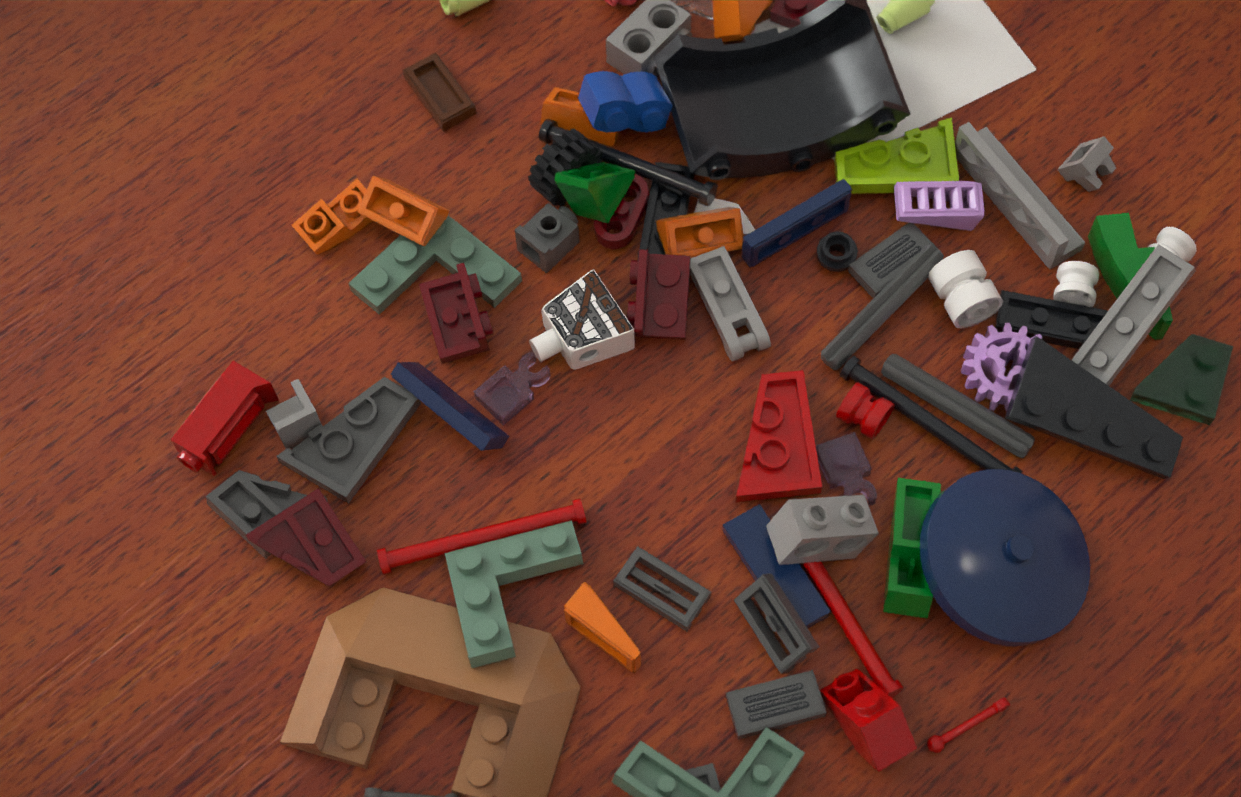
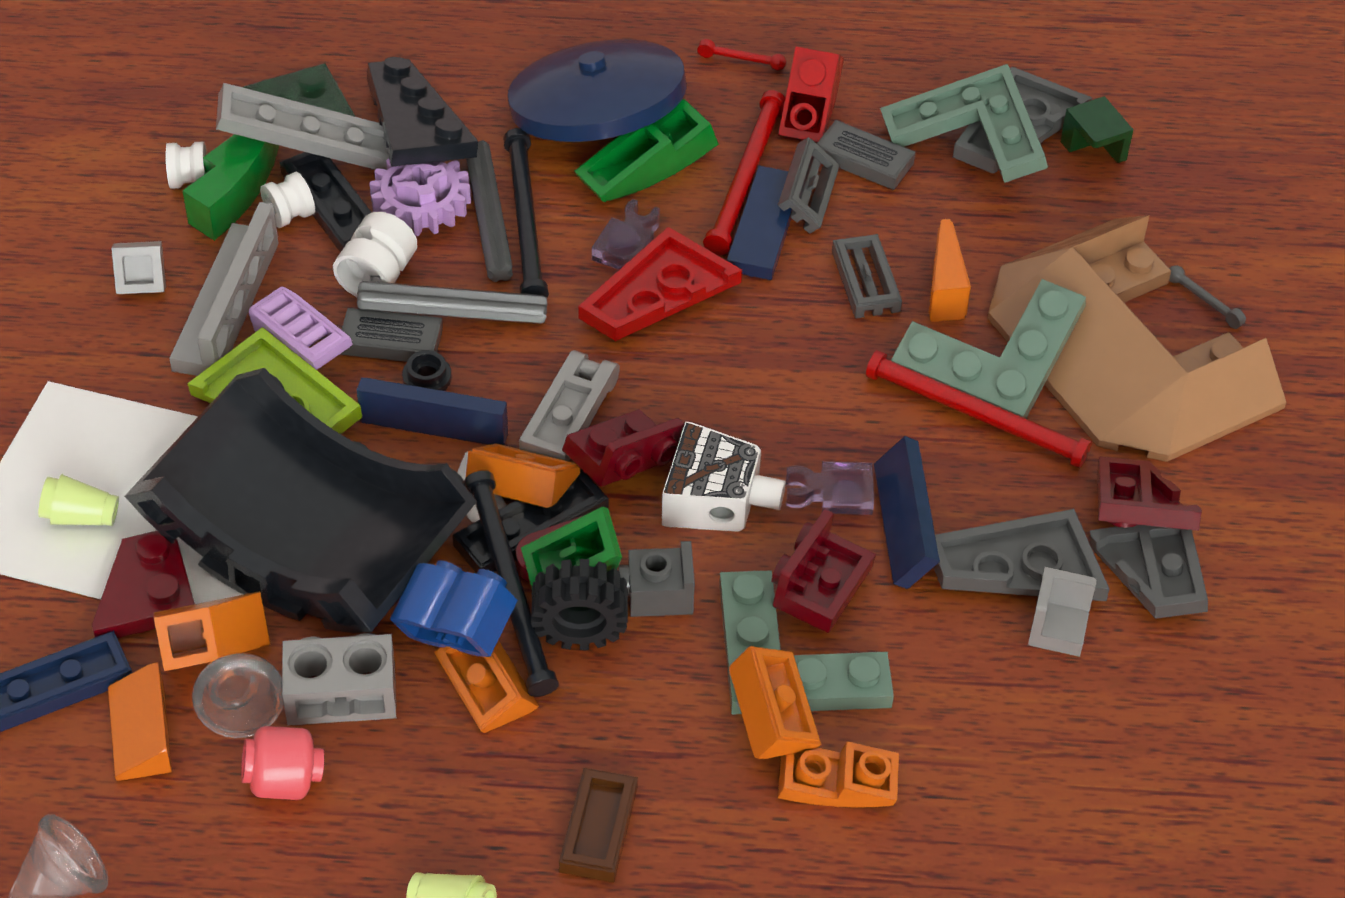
camera: 140 degrees left, 15 degrees down
(222, 418) = (1132, 665): red window -> none
(821, 529) = (710, 188): light grey brick -> none
(862, 409) = (566, 249): red wheel -> none

